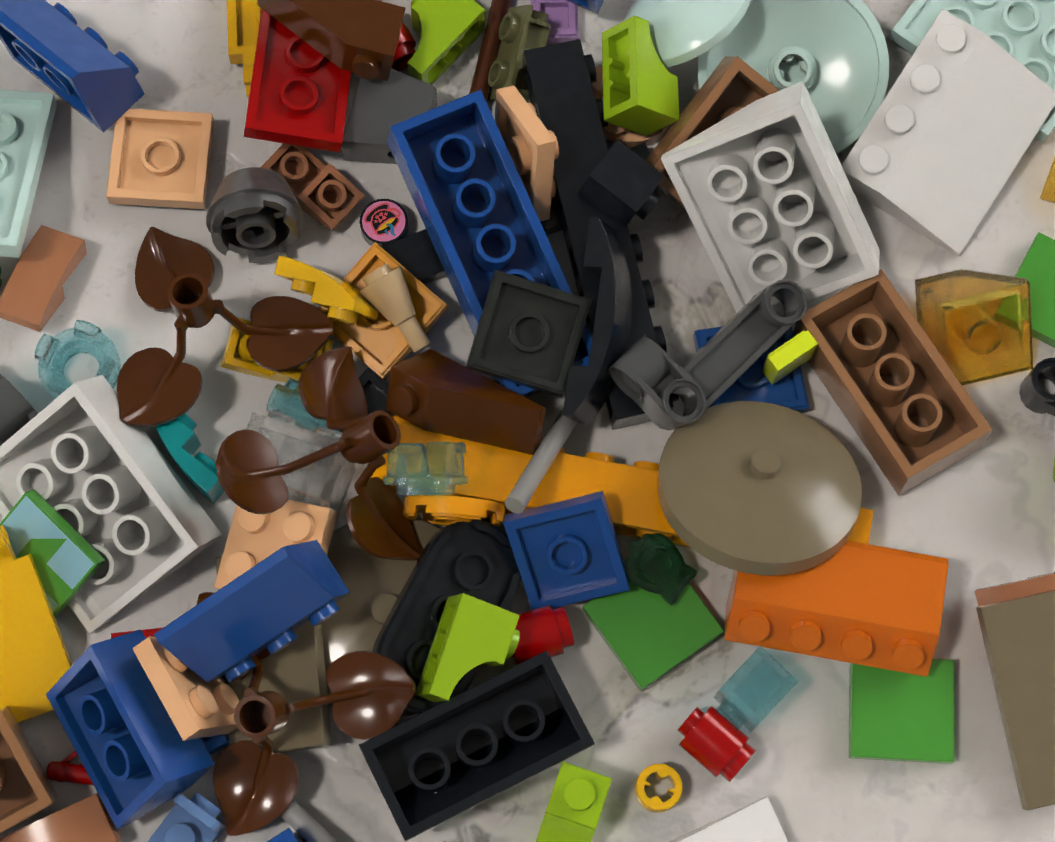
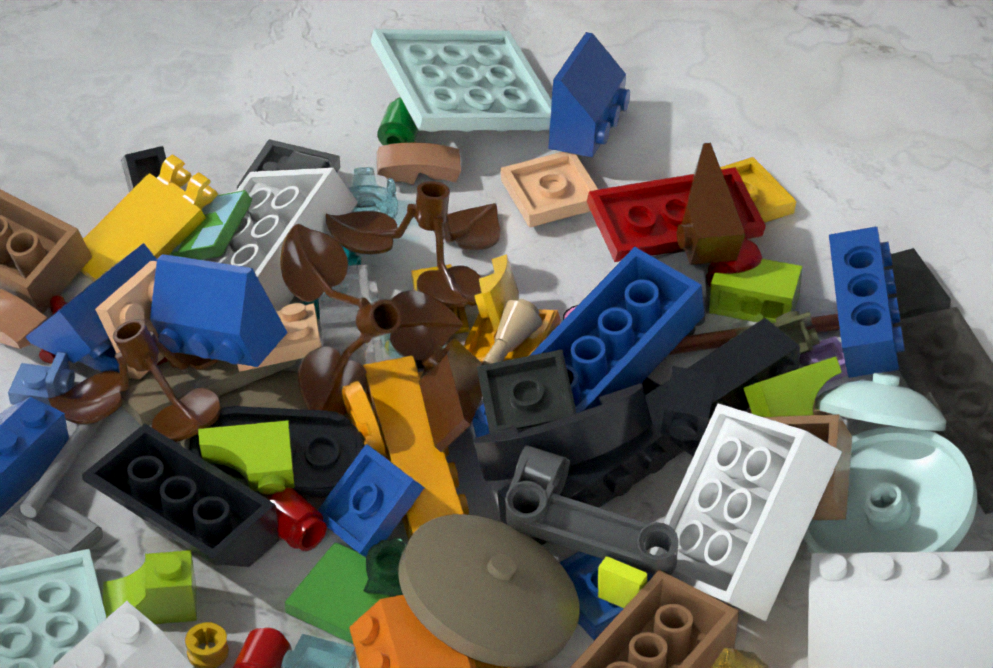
camera: 70 degrees right, 30 degrees down
(254, 215) = (535, 238): flat silver cone -> none
(317, 187) = (587, 268): nougat slope -> none
(426, 469) = (376, 375): clear light blue piece -> none
(529, 145) = (683, 346): light nougat plate -> none
(539, 464) = (429, 447): light grey bar -> none

